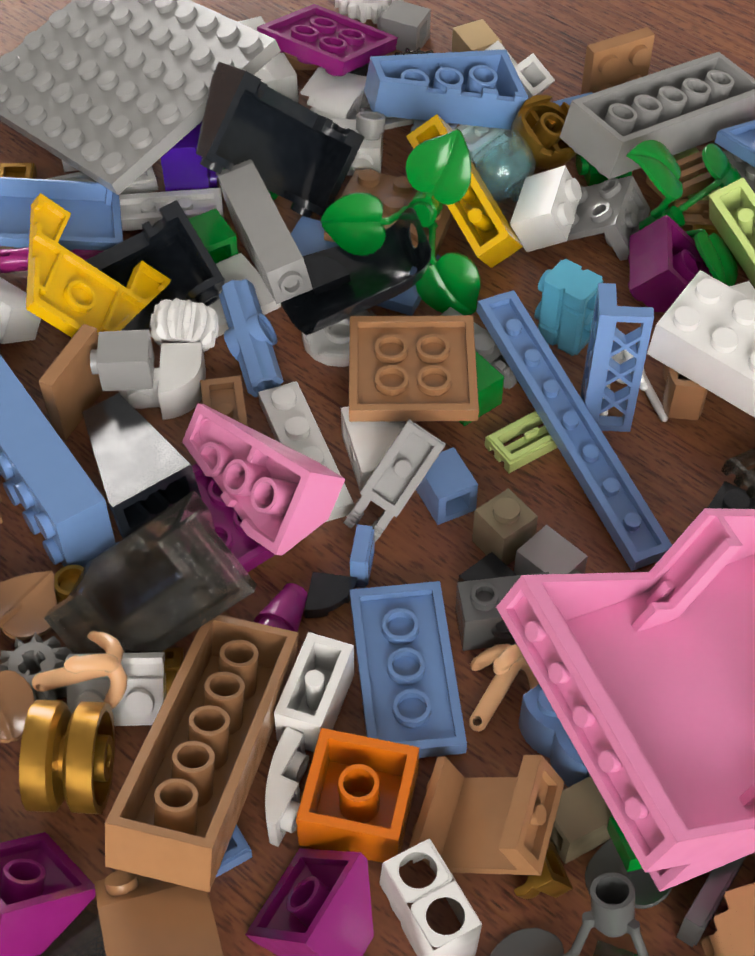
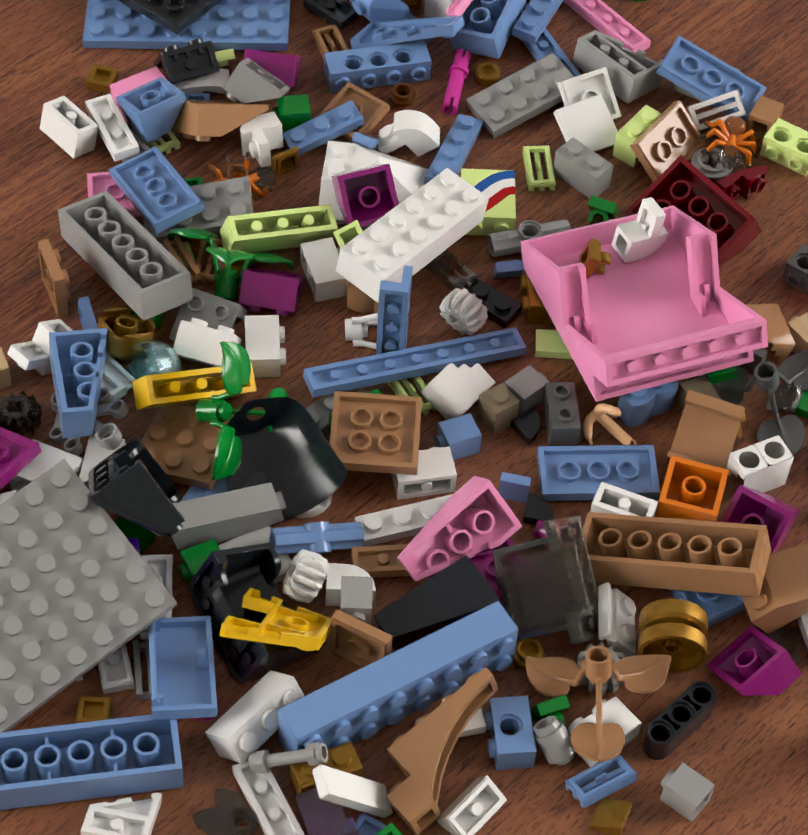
camera: 90 degrees left, 0 degrees up
(90, 667) = (624, 605): light nougat piece -> none
(397, 475) = (465, 450): light grey hinge -> none
(524, 465) = (457, 389): none -> white piece
(567, 305) = (315, 341): medium azure brick -> none
(584, 251) = (263, 344): none -> white brick
(679, 473) = (463, 311): none -> white gear

